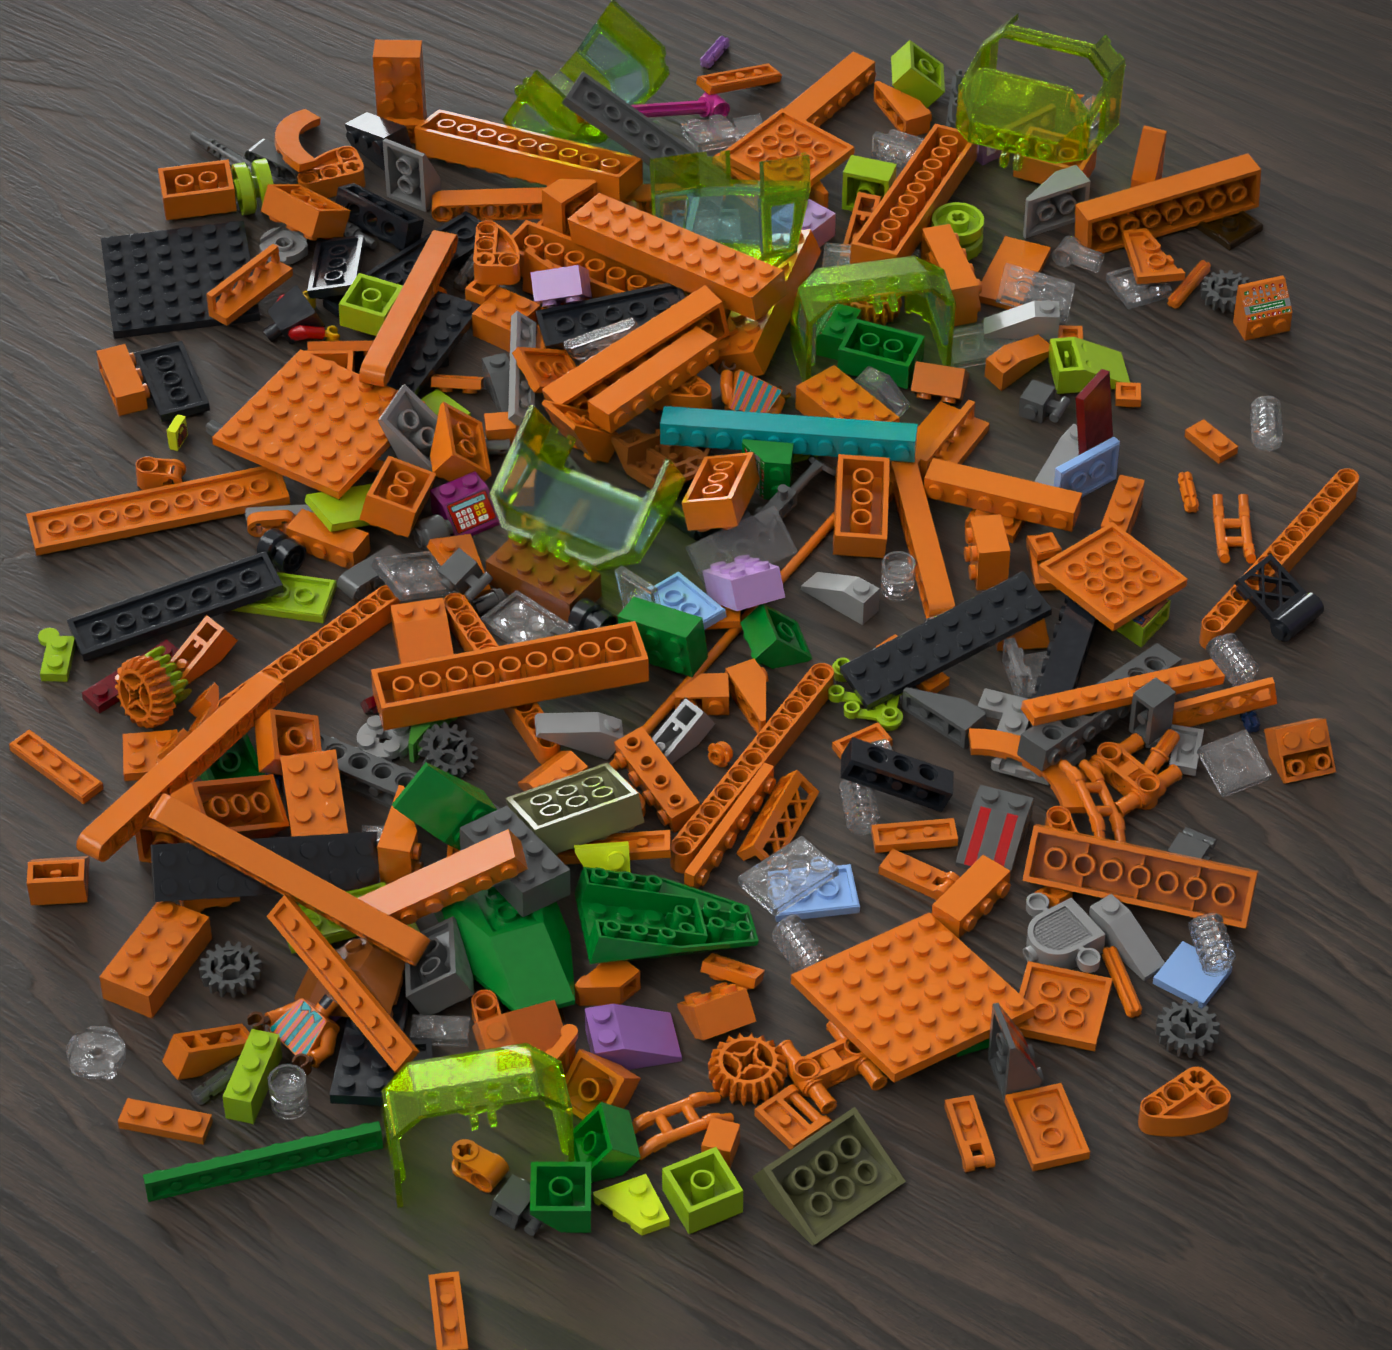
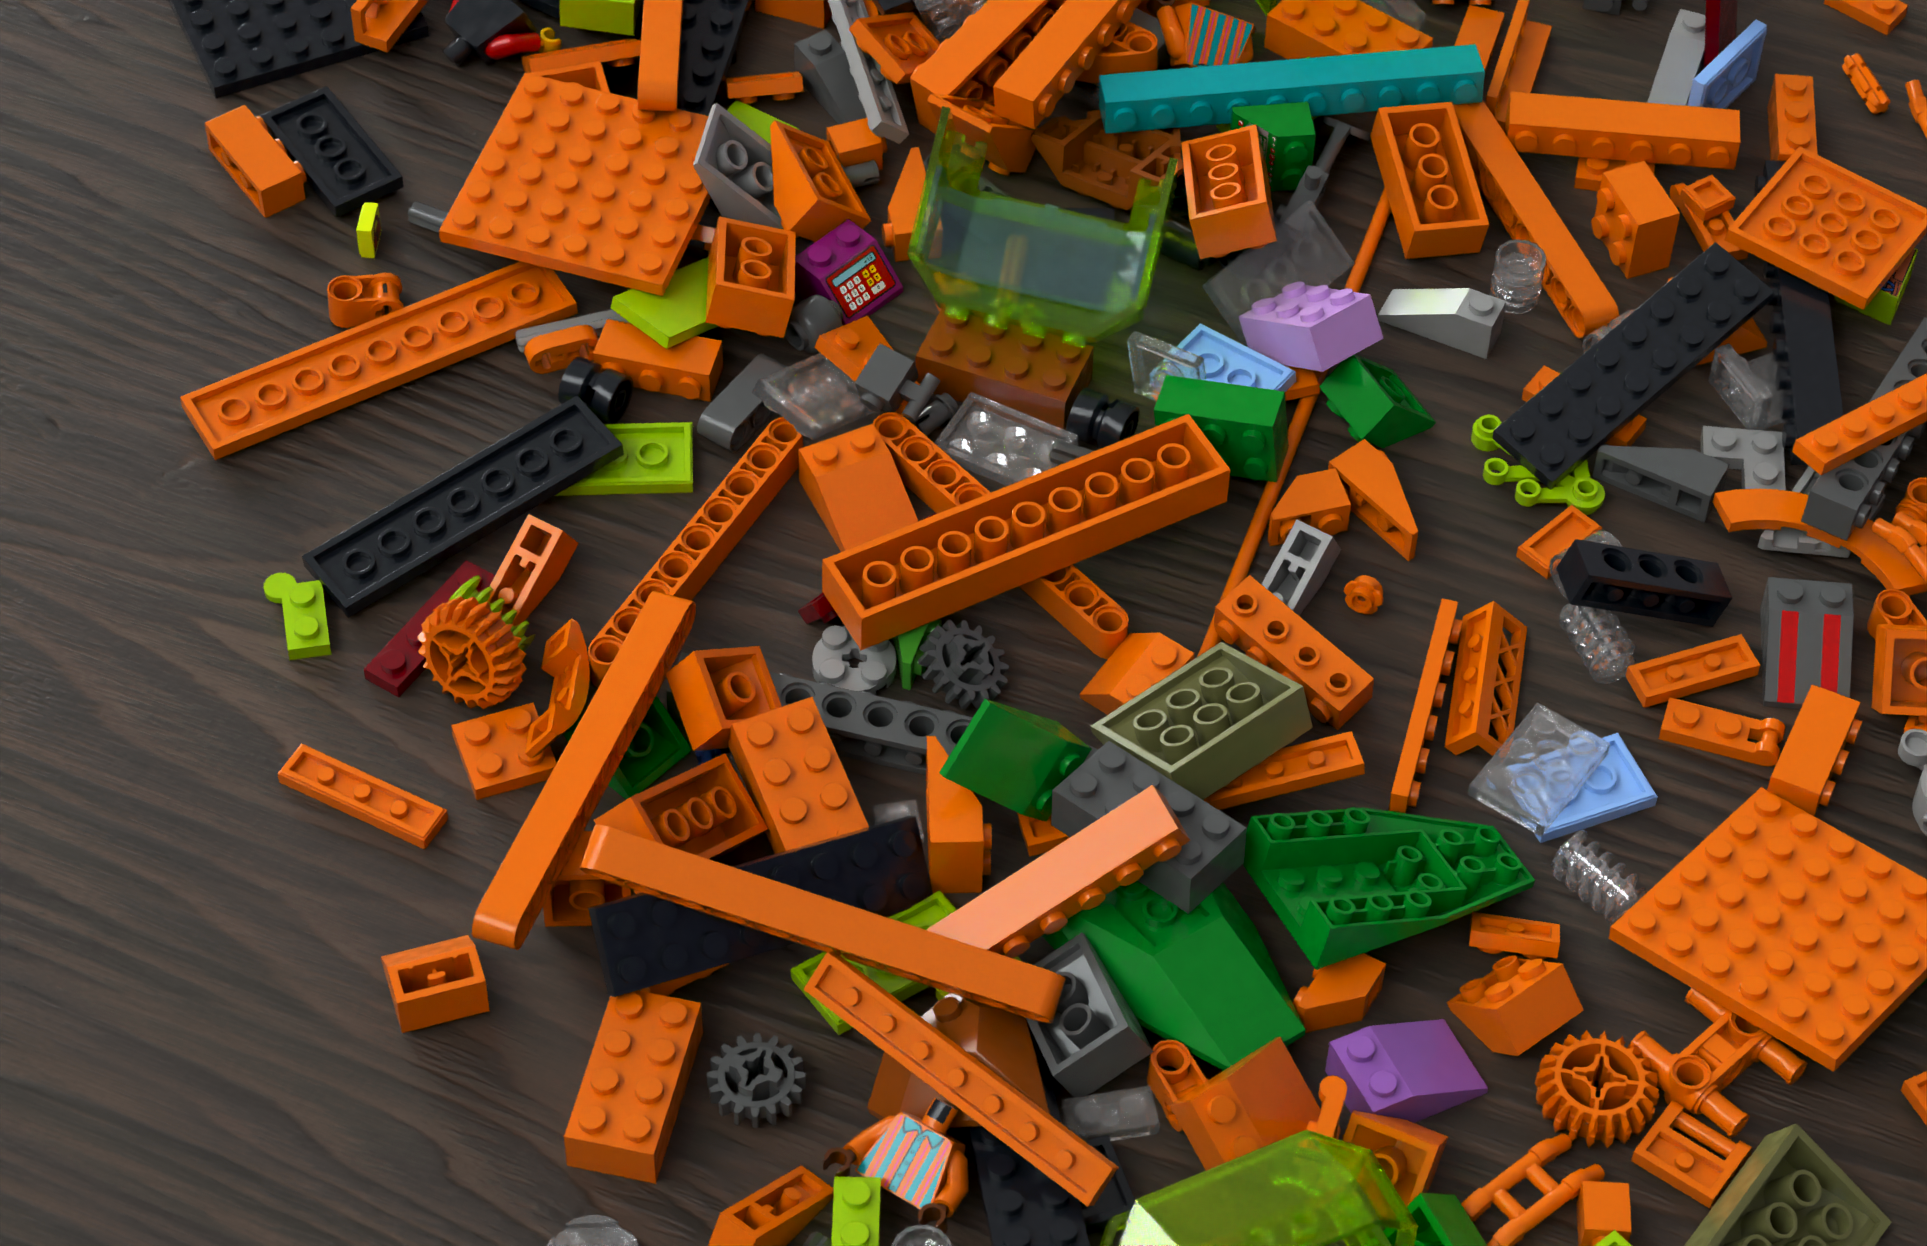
camera: 15 degrees left, 5 degrees up
(582, 731) = (1159, 598): light grey slope -> none
(609, 856) = (1272, 791): neon yellow wing -> none
(766, 747) = (1419, 608): orange beam -> none

